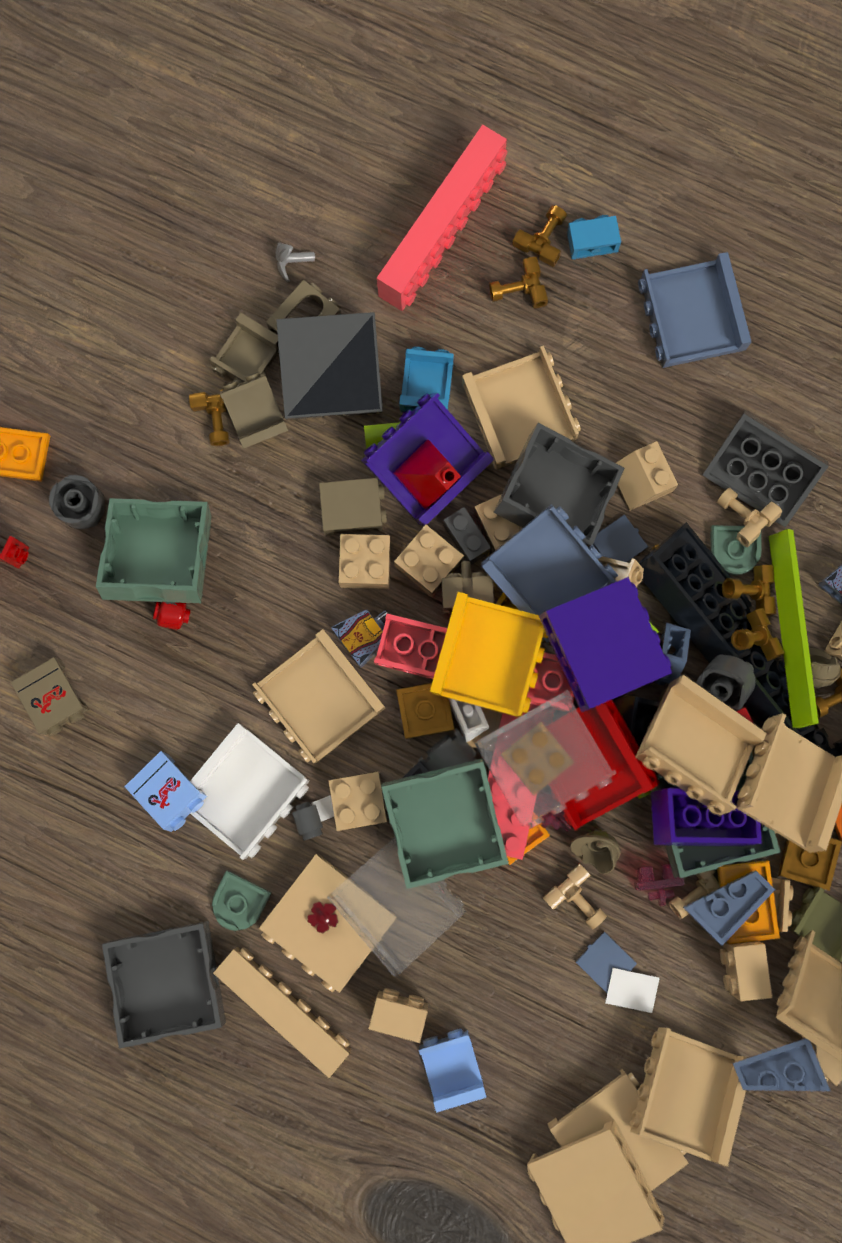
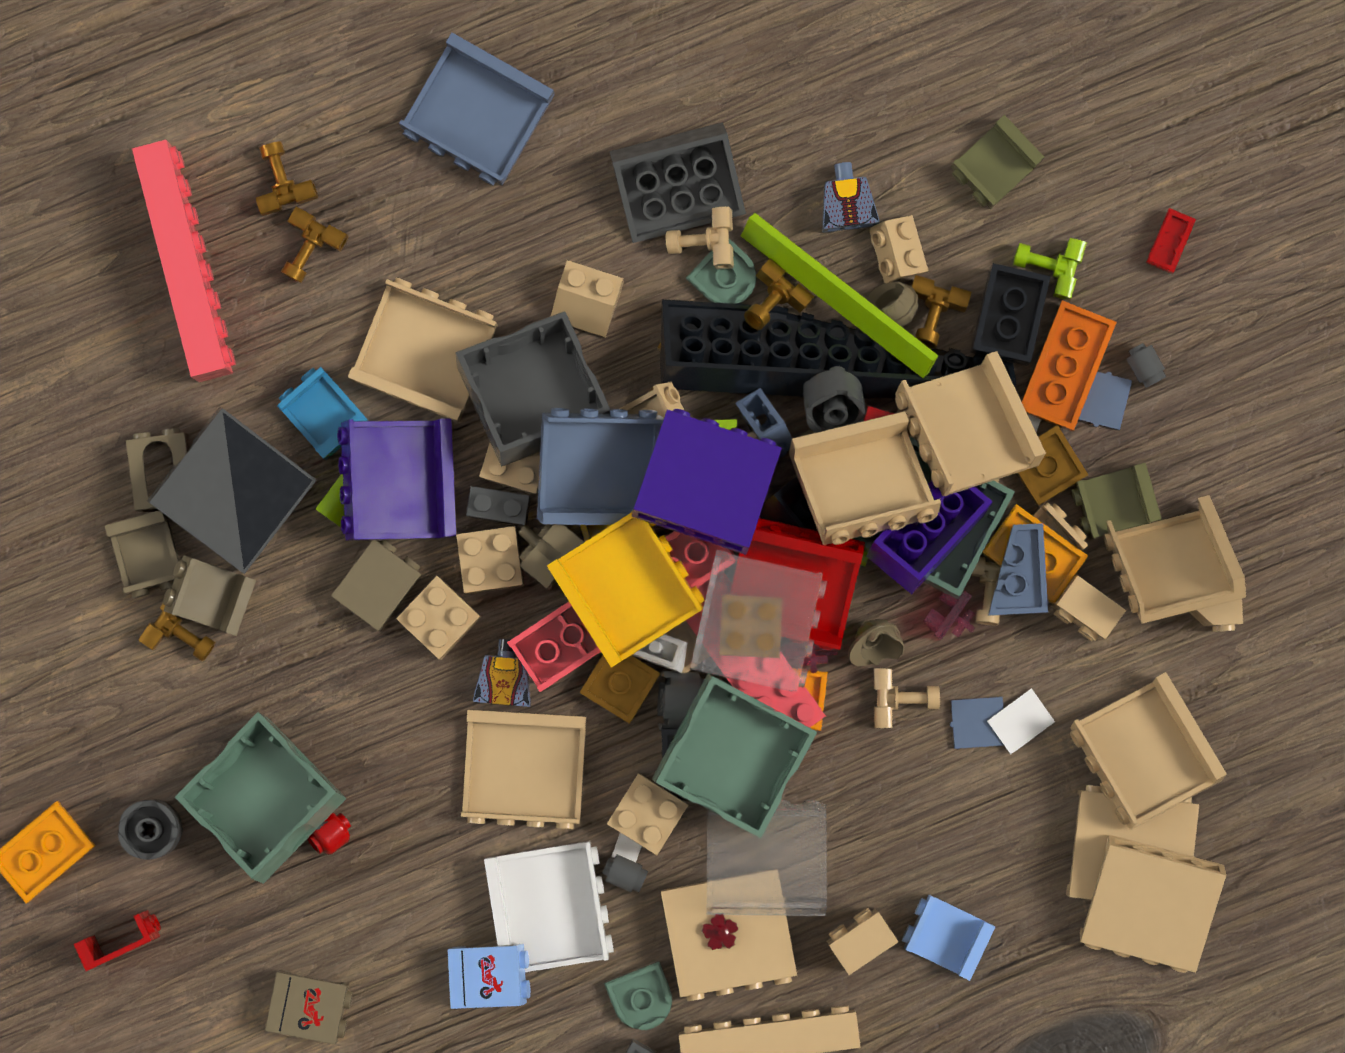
camera: 50 degrees left, 5 degrees up
(284, 256) = (84, 434): light grey plant -> none
(427, 474) = (413, 492): red slope -> none
(593, 237) = (324, 136): dark azure brick -> none
(620, 541) = (626, 373): sand blue piece -> none
(759, 636) = (819, 331): pearl gold bar -> none
(783, 1069) = (1191, 655): sand blue wing -> none

